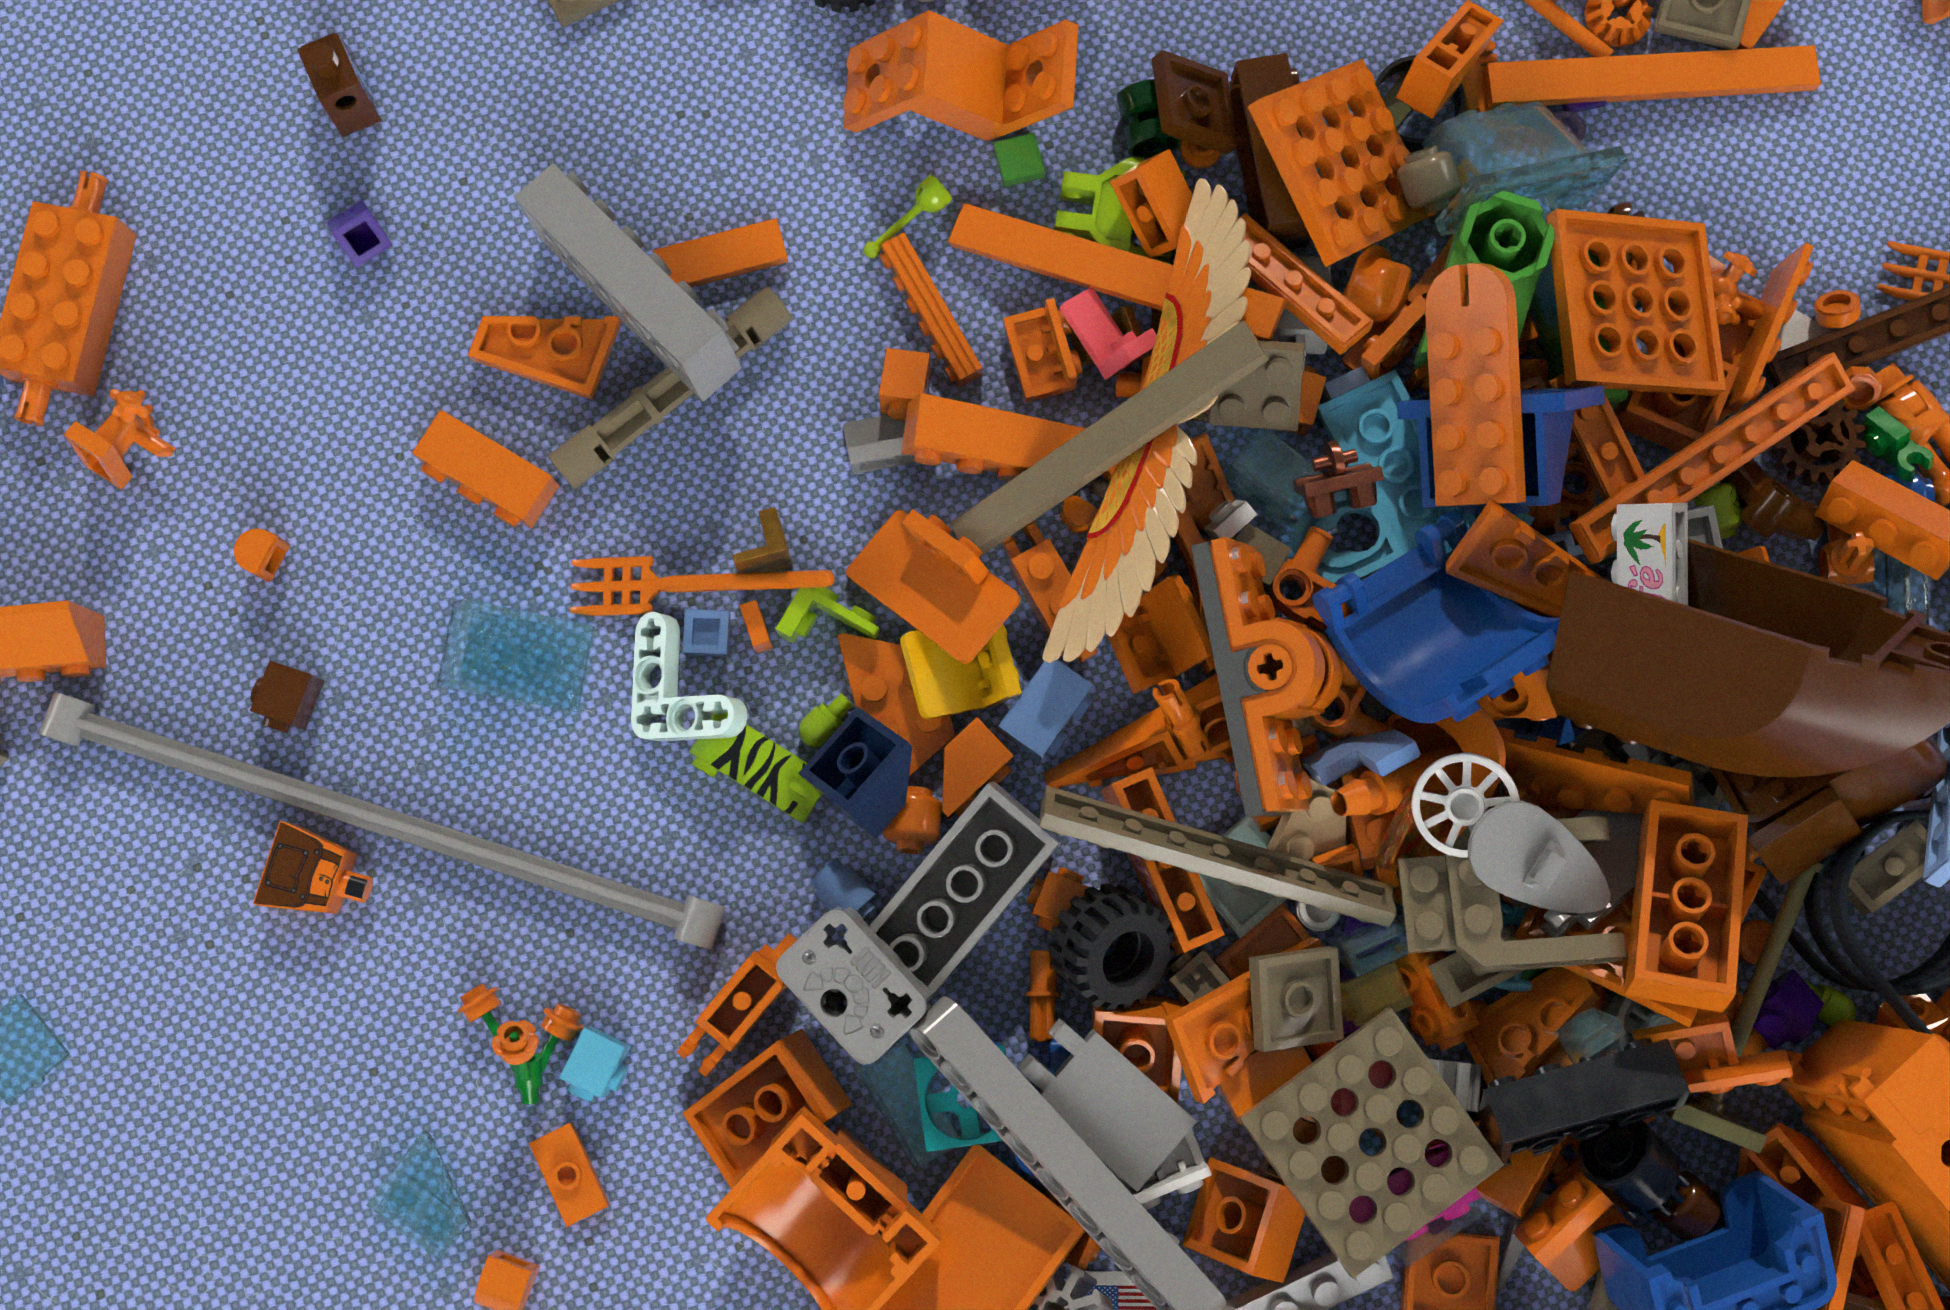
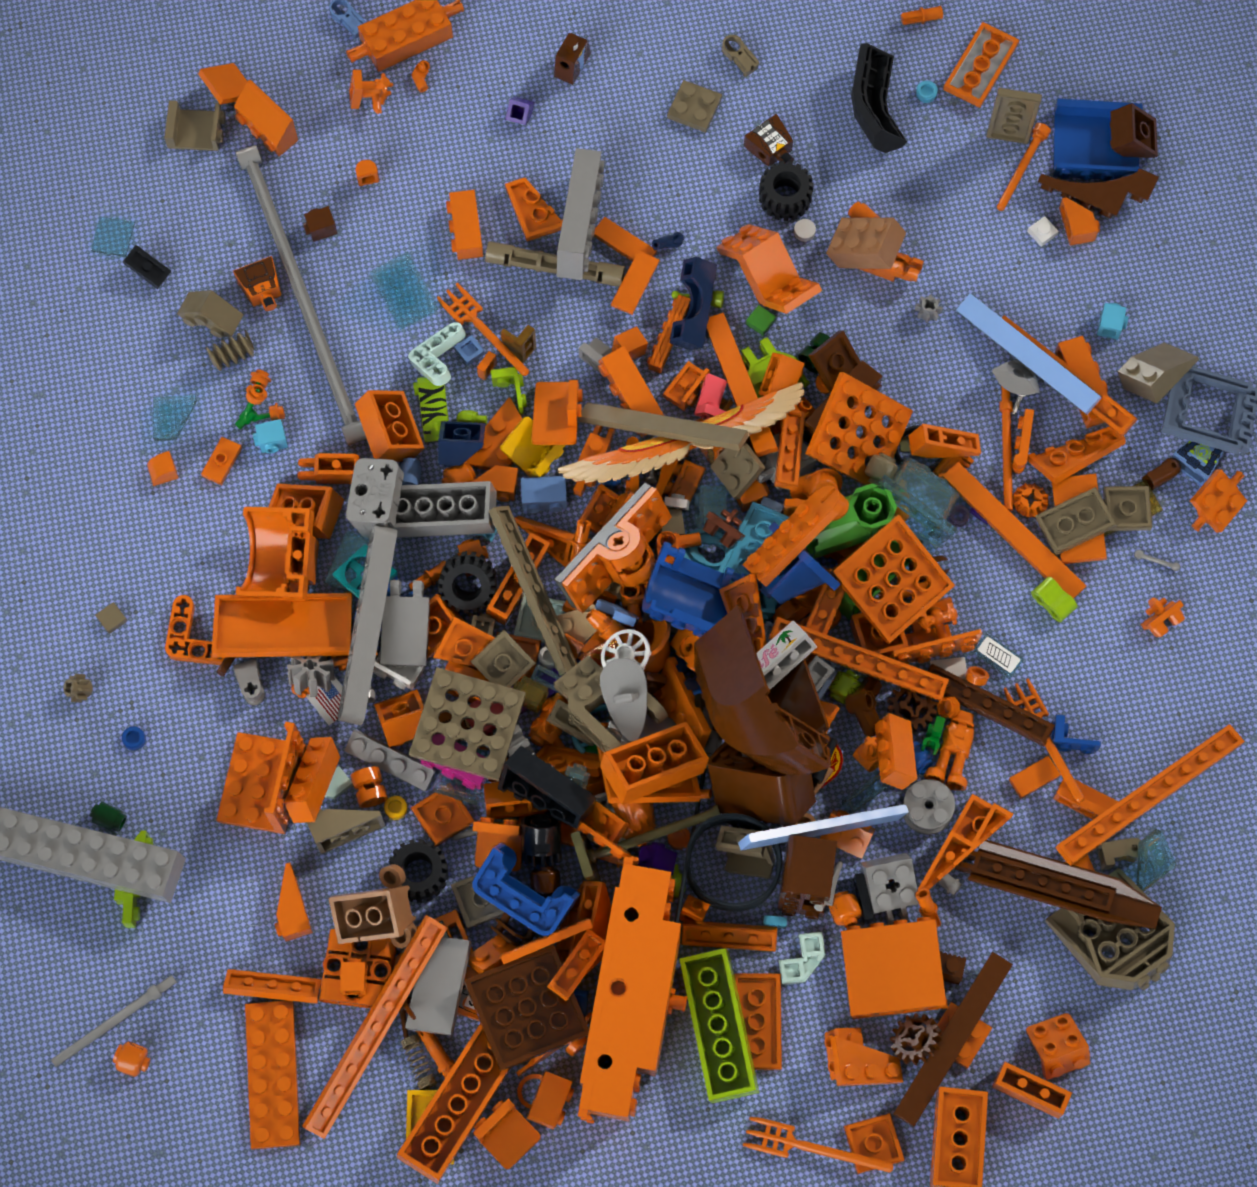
camera: 55 degrees right, 10 degrees down
(120, 1038) = (146, 266): none -> black hinge
(158, 338) = (419, 75): none -> orange arm
(293, 997) = (211, 311): none -> dark tan brick
(392, 1014) = (231, 351): none -> dark tan piece
(741, 863) = (389, 425): none -> orange brick
(776, 188) = (668, 241): none -> dark blue arm
(806, 292) = (635, 282): none -> orange piece
(892, 195) = (699, 279): none -> dark blue arch
(1802, 106) = (1054, 599): none -> lime axle
(1805, 835) = (720, 789): reddish brown tile -> none
(1833, 251) = (998, 655): none -> tile

